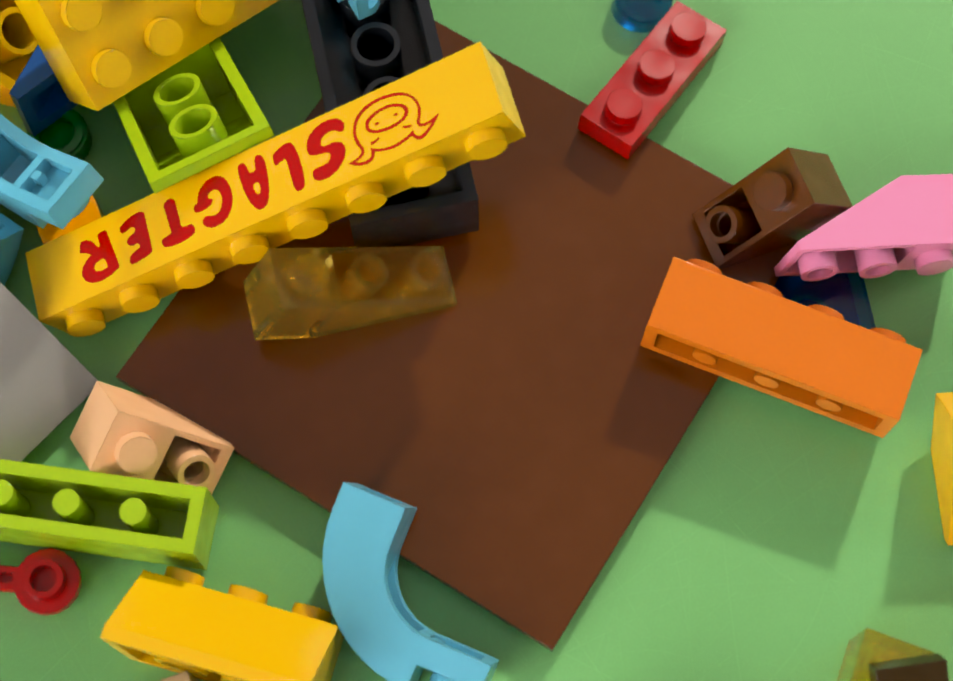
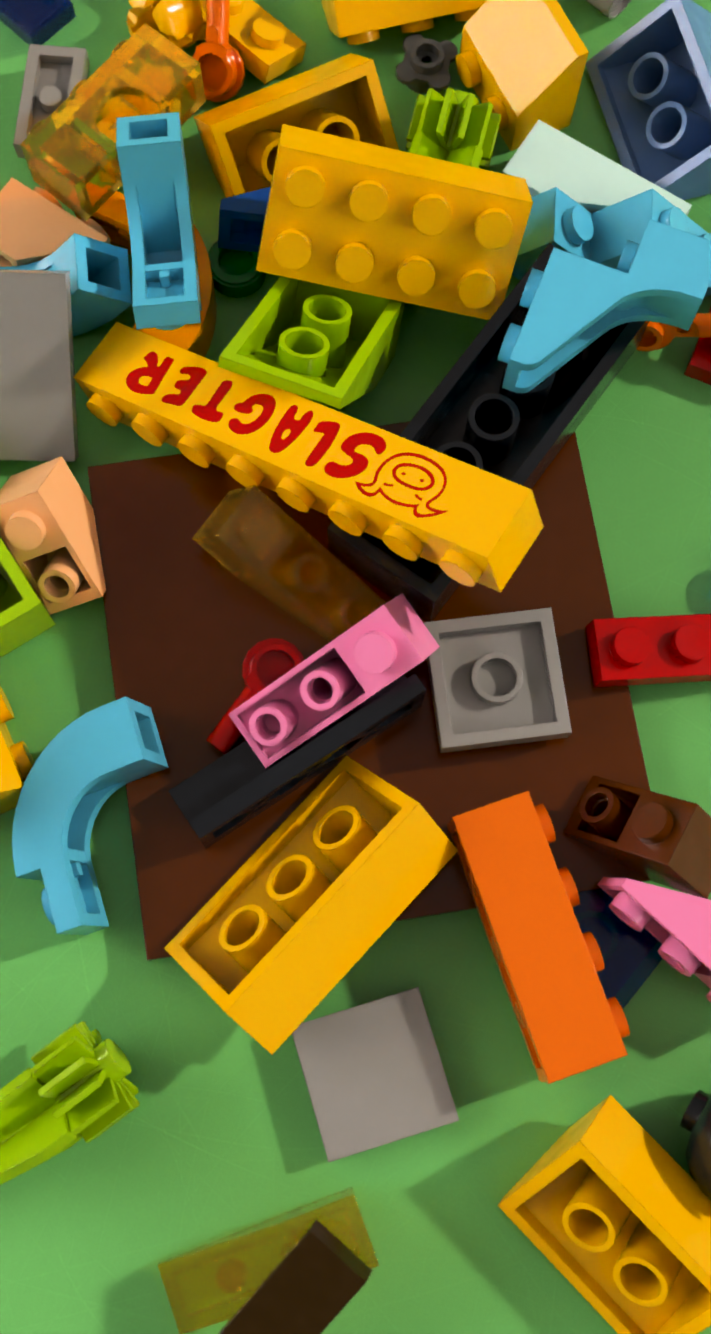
camera: 45 degrees right, 5 degrees up
(414, 371) = (260, 668): none -> red plate
(468, 324) = (334, 680): none -> bright pink slope
(487, 401) = (240, 786): none -> black fence
(564, 217) = (497, 680): none -> light grey plate
(616, 484) = (311, 901): none -> yellow slope
(779, 553) = (374, 1074): none -> light grey tile

